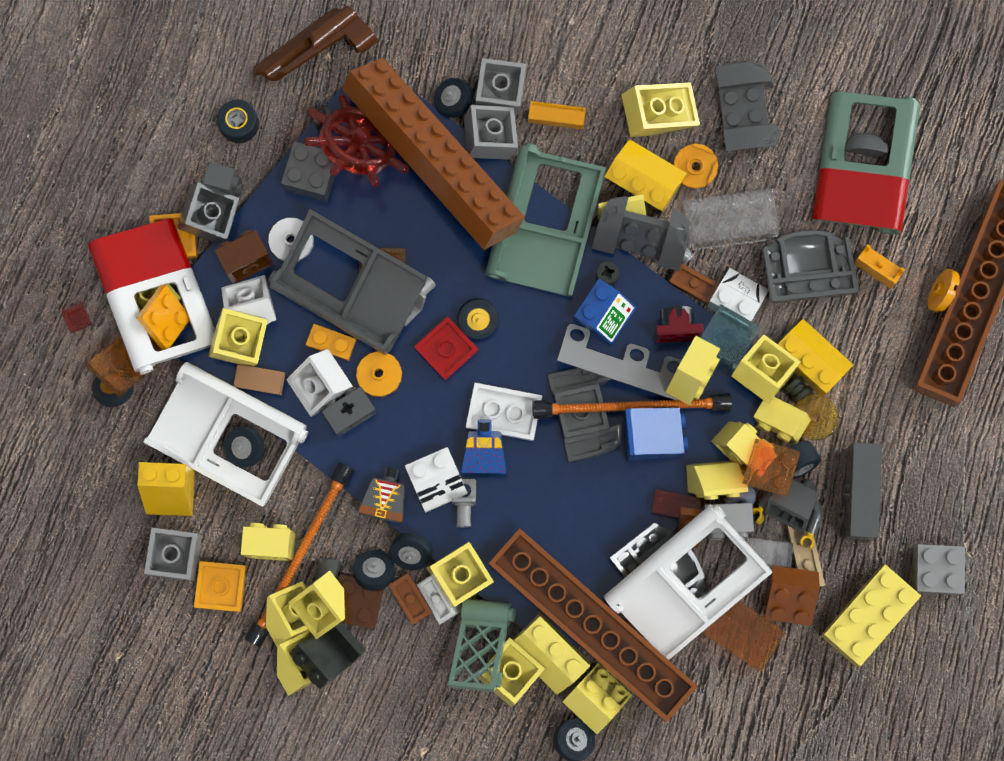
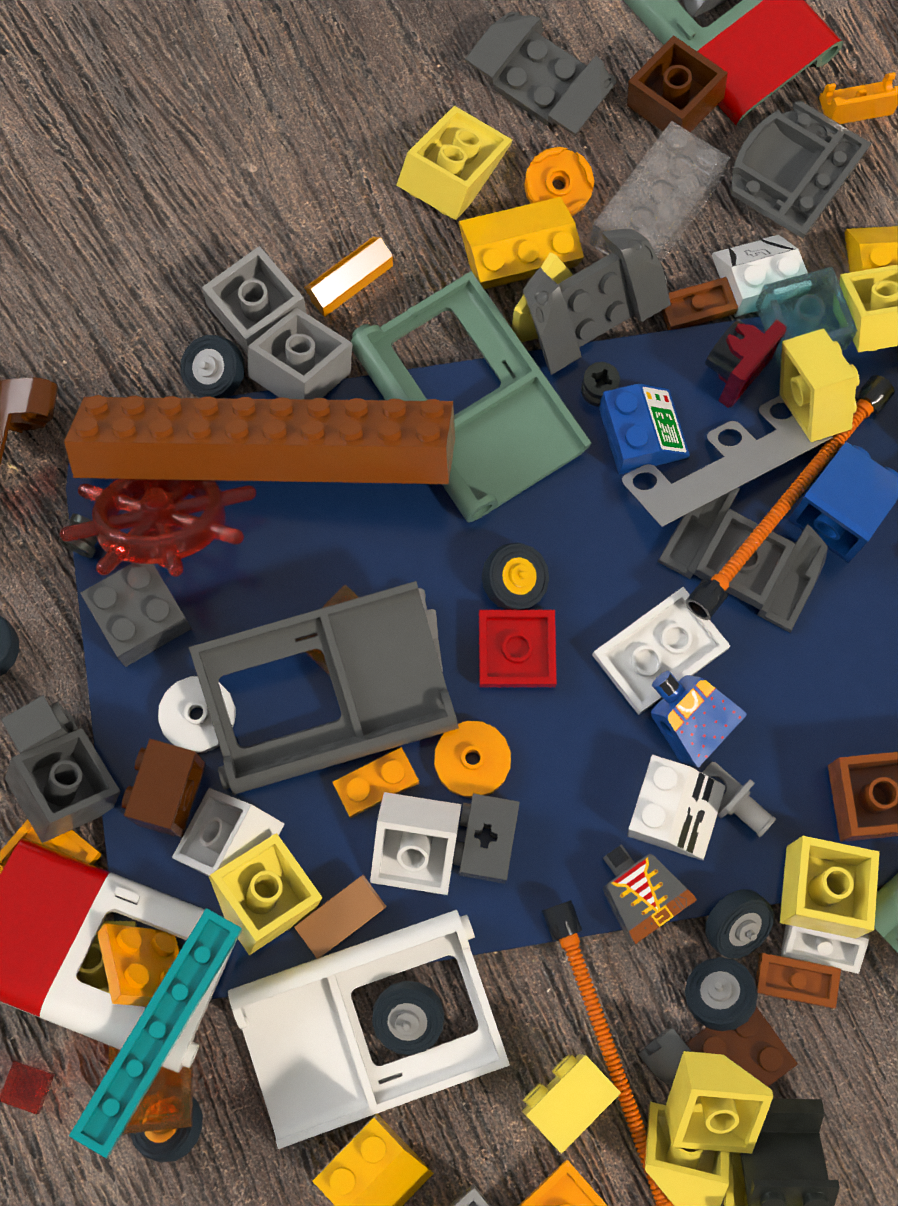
camera: 55 degrees left, 5 degrees down
(141, 346) = (155, 1034): none -> teal plate
(795, 176) = (676, 86): none -> reddish brown brick

